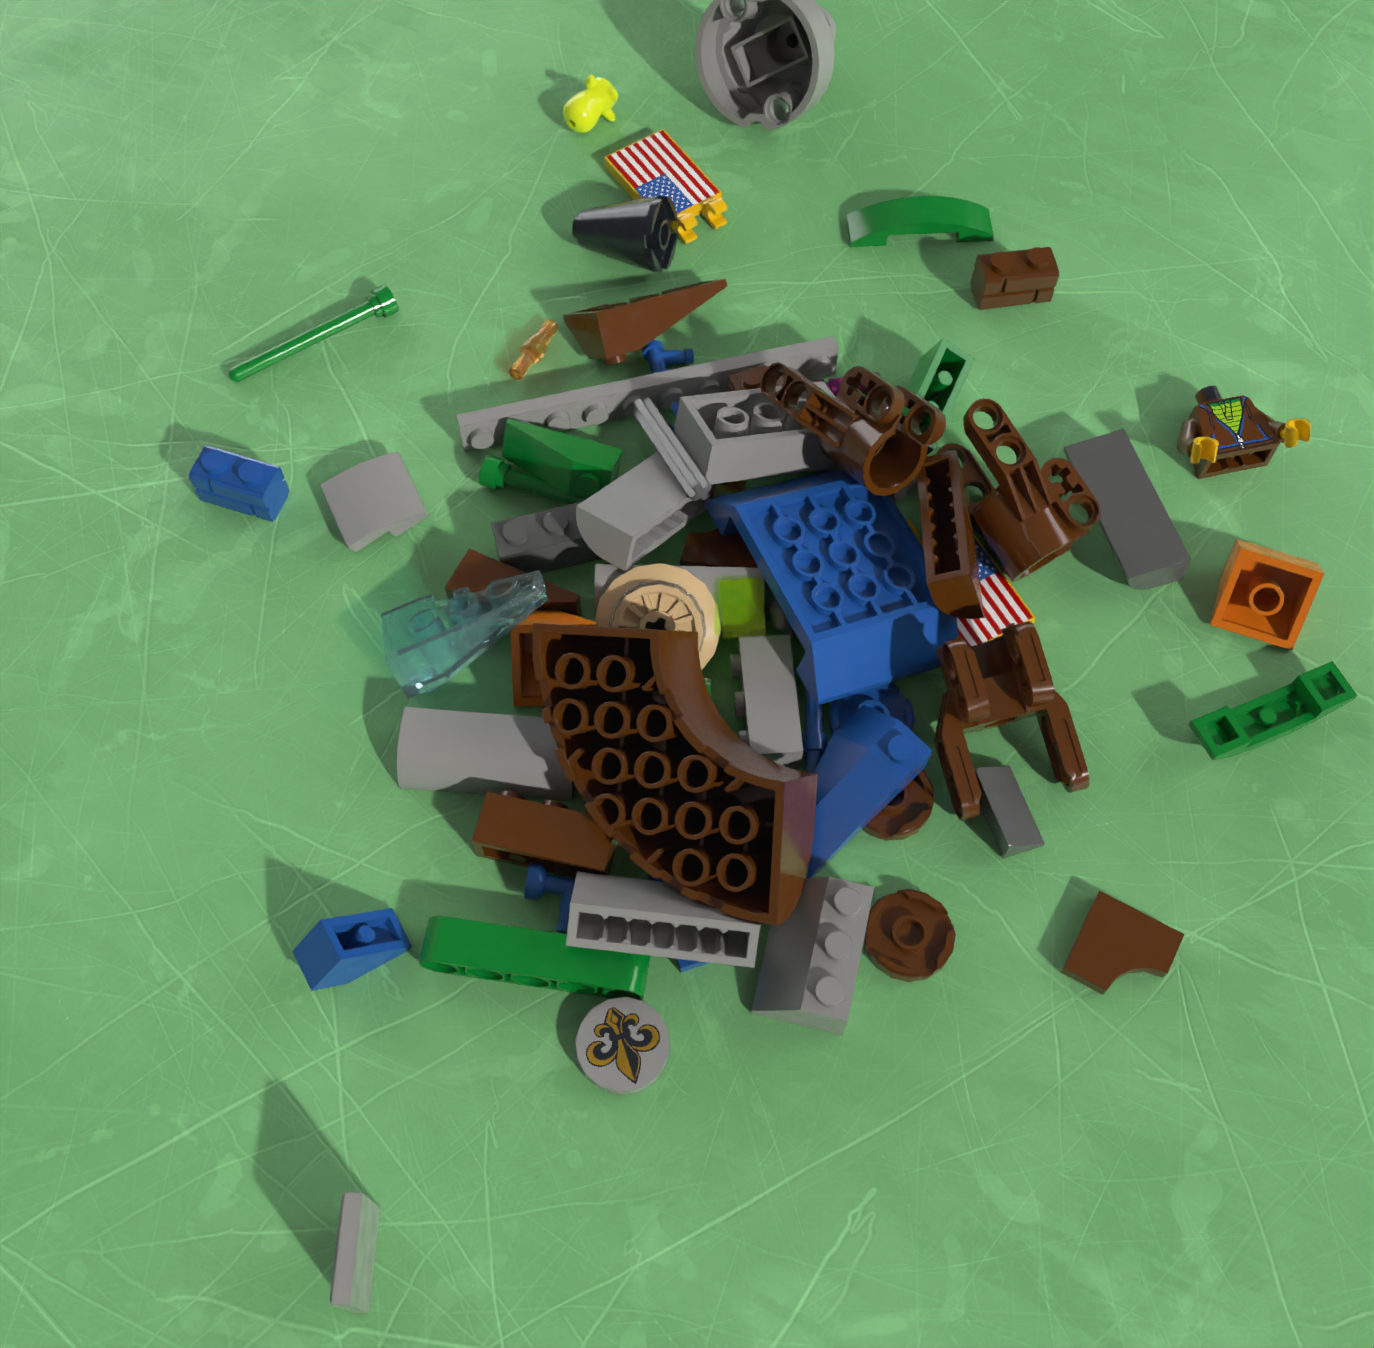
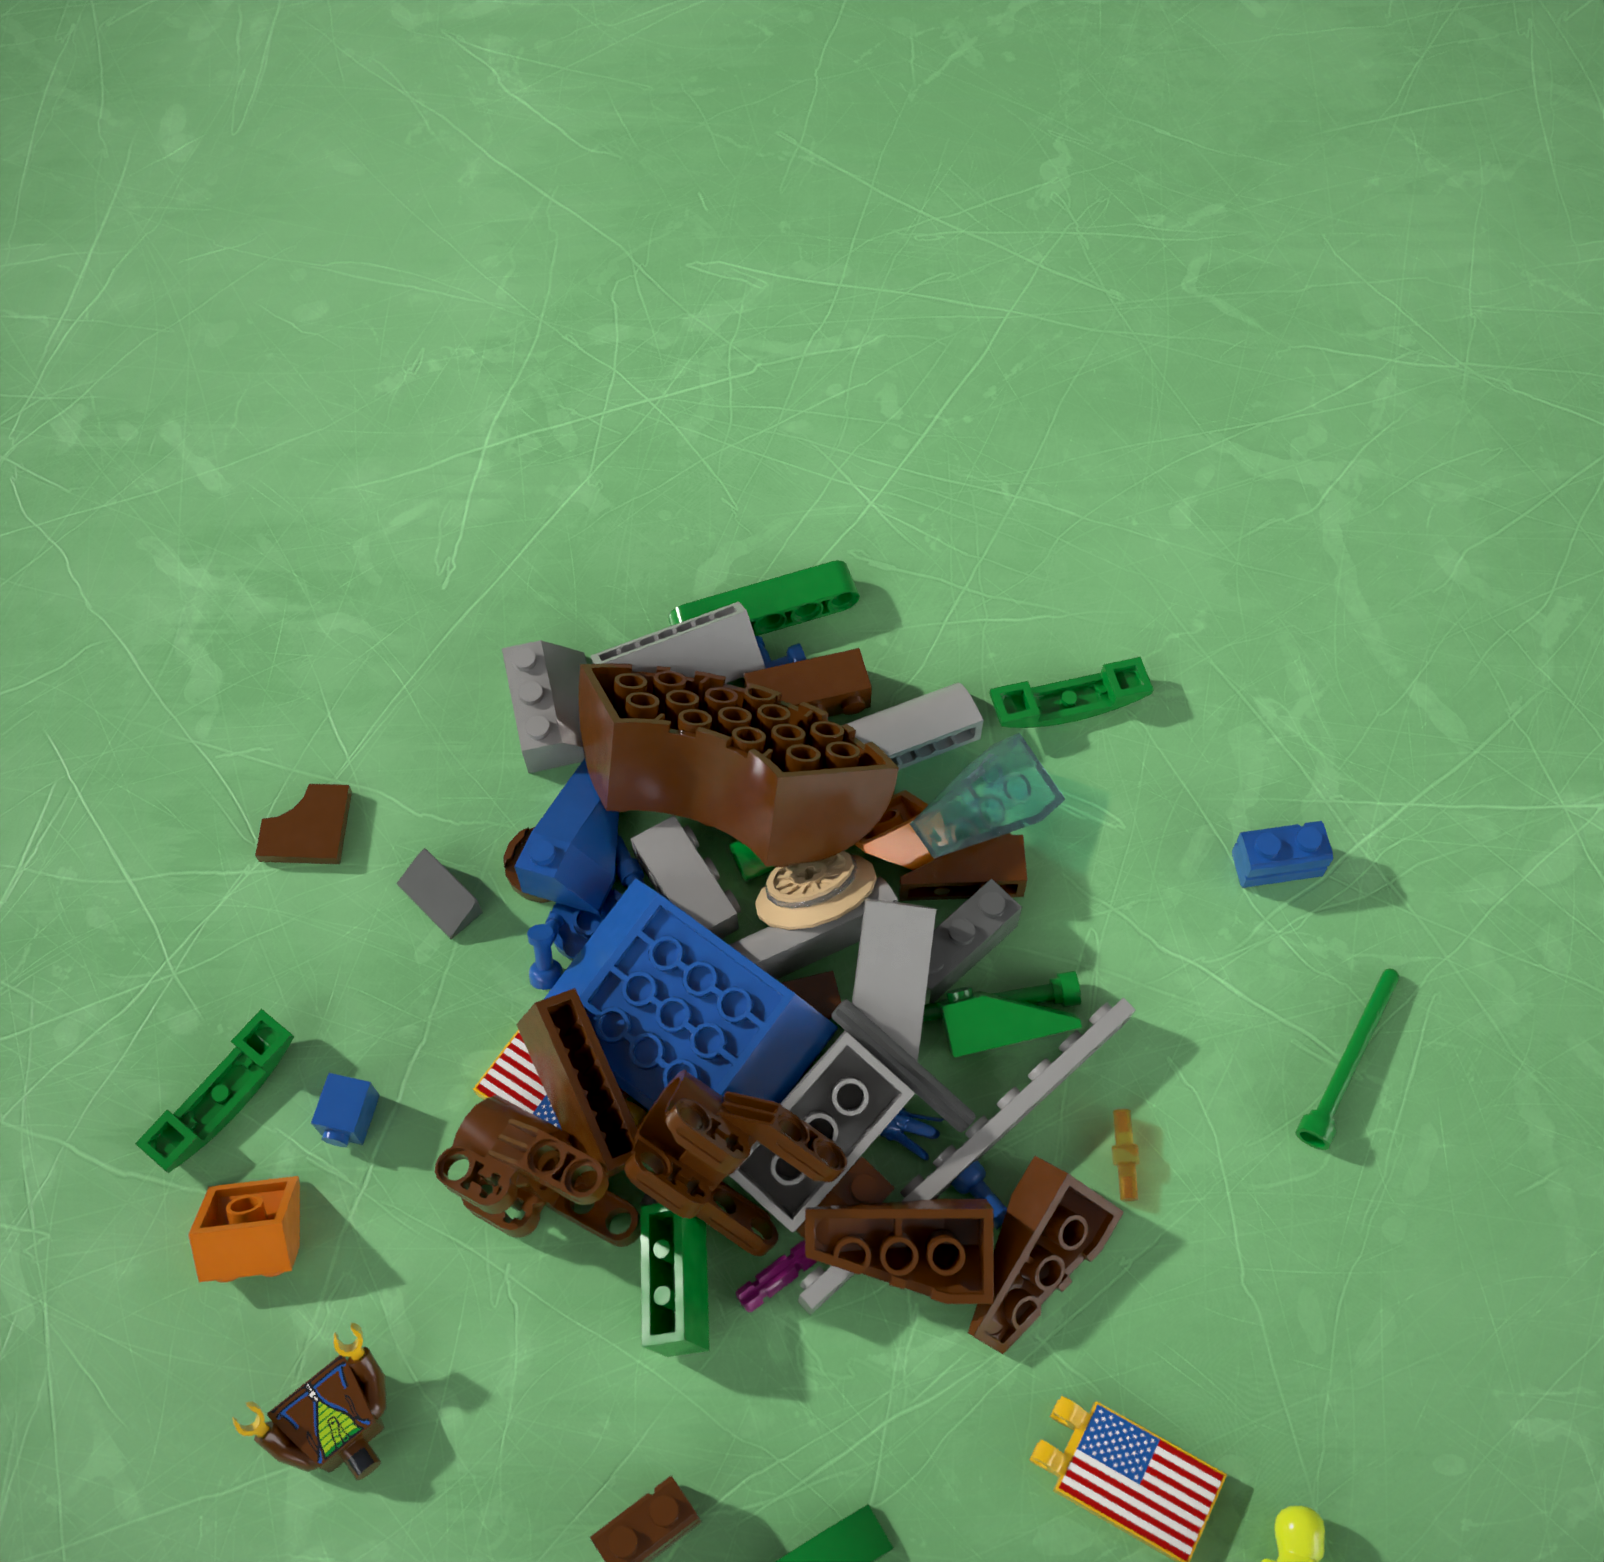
camera: 155 degrees right, 0 degrees up
(299, 712) = (1072, 699): none -> green slope
(349, 947) = (901, 553): blue slope -> none
(355, 1253) = (768, 382): light grey tile -> none
(374, 500) = (1152, 903): light grey slope -> none
(622, 1045) = (664, 584): light grey tile -> none
(630, 231) = (1117, 1351): black cone -> none
(717, 328) = (914, 1245): none -> reddish brown wedge
(742, 608) = (744, 929): clear neon green bracket -> none
(909, 935) = (484, 760): reddish brown tile -> none
(929, 690) = (546, 970): none -> blue piece
(995, 687) = (483, 971): reddish brown piece -> none
(1130, 511) = (421, 1255): dark grey brick -> none
(1155, 647) = (345, 1110): none -> blue brick

